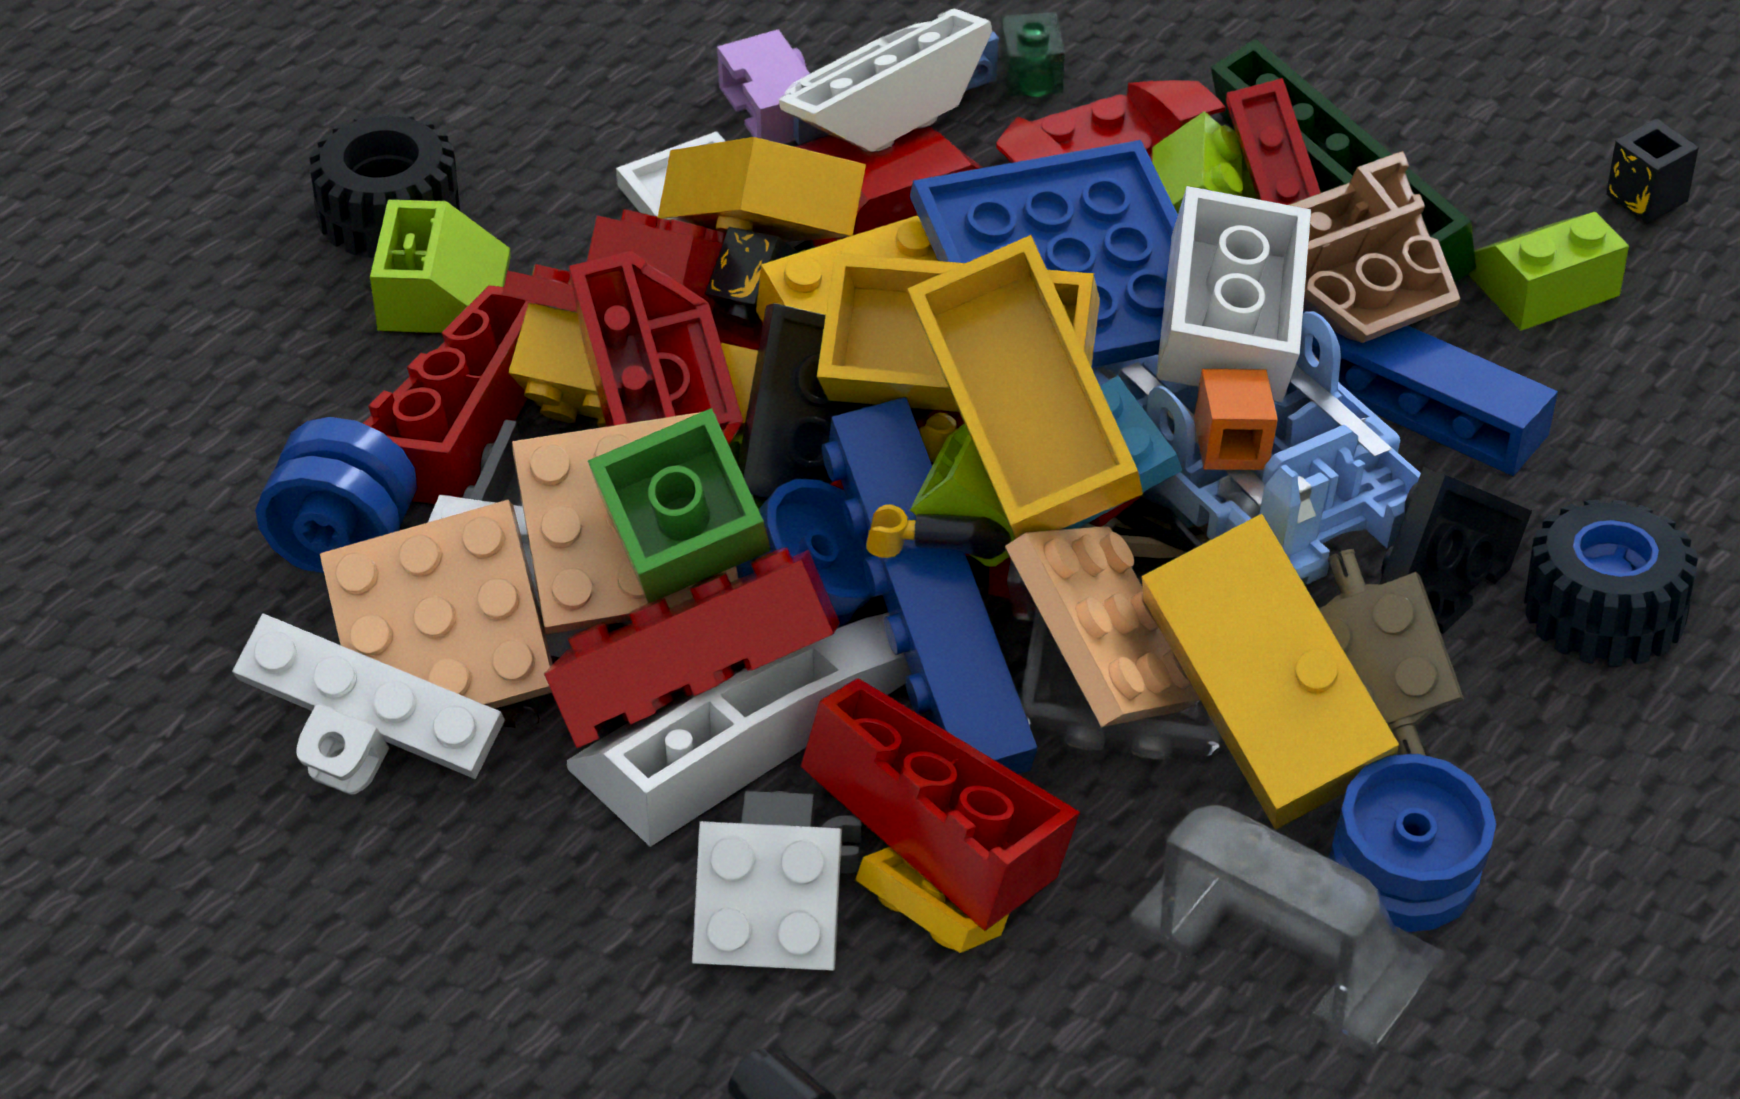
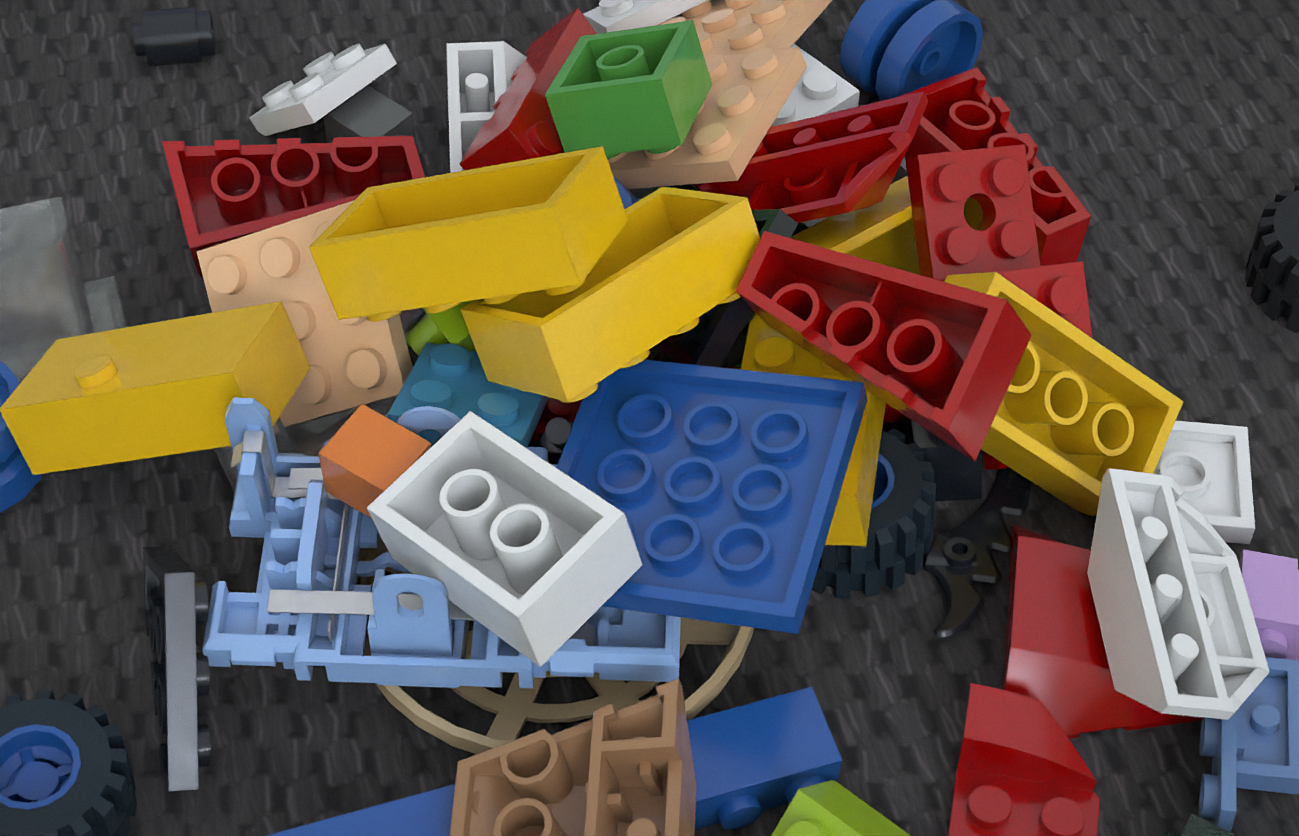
camera: 125 degrees right, 5 degrees up
(431, 265) = (1174, 237): lime slope -> none
(865, 157) = (910, 338): none -> red wedge
(1392, 647) = (132, 527): dark tan plate -> none

